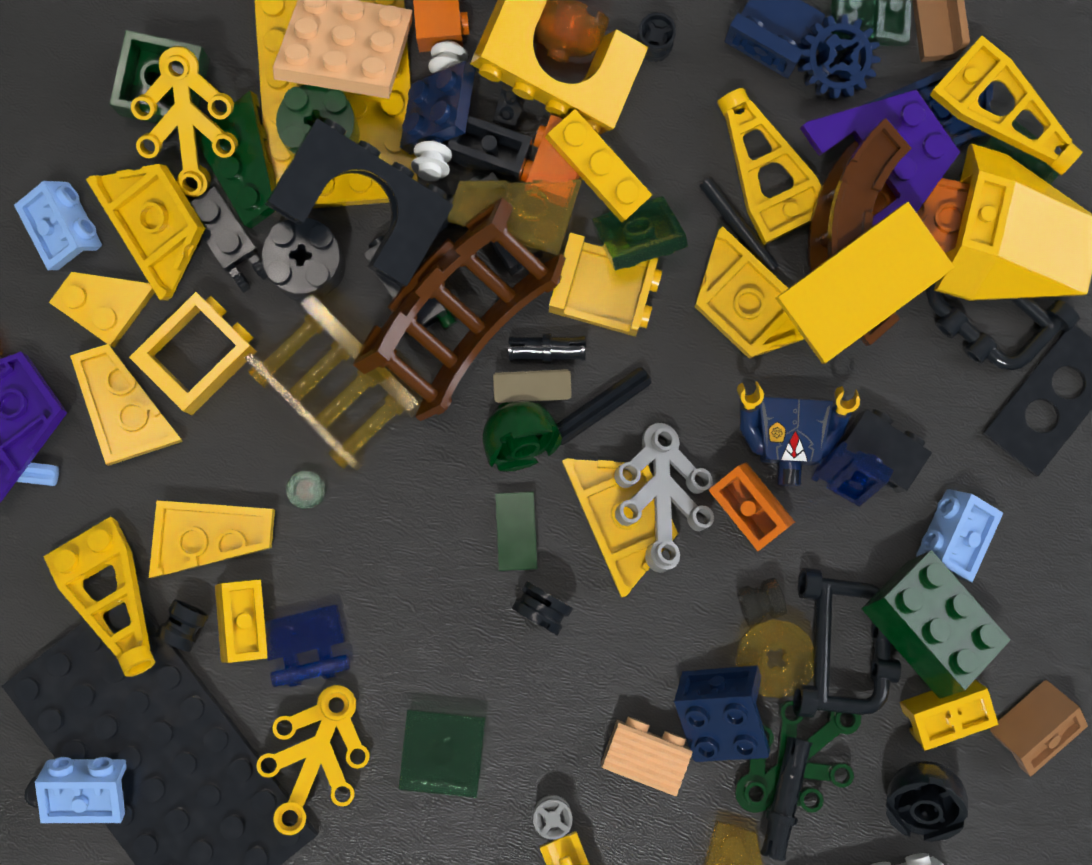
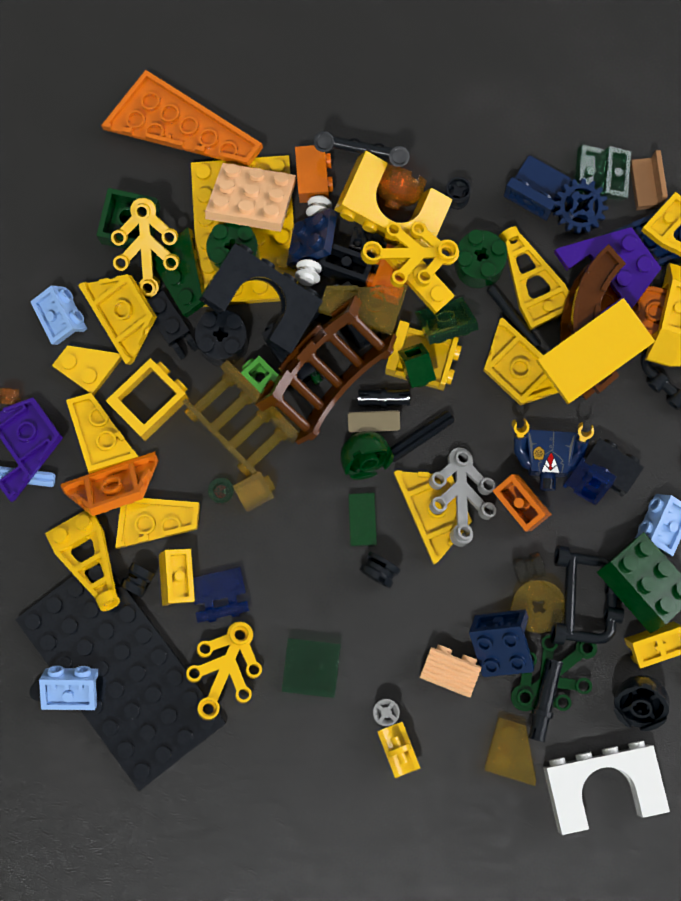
camera: 10 degrees right, 5 degrees down
(143, 485) = (113, 485): none -> orange wing
(352, 305) = (255, 367): none -> bright green brick
(355, 490) = (254, 491): none -> clear yellow brick
(589, 129) = (413, 252): none -> yellow plant
(596, 301) = (417, 365): none -> dark green brick
(694, 117) = (486, 246): none -> dark green brick

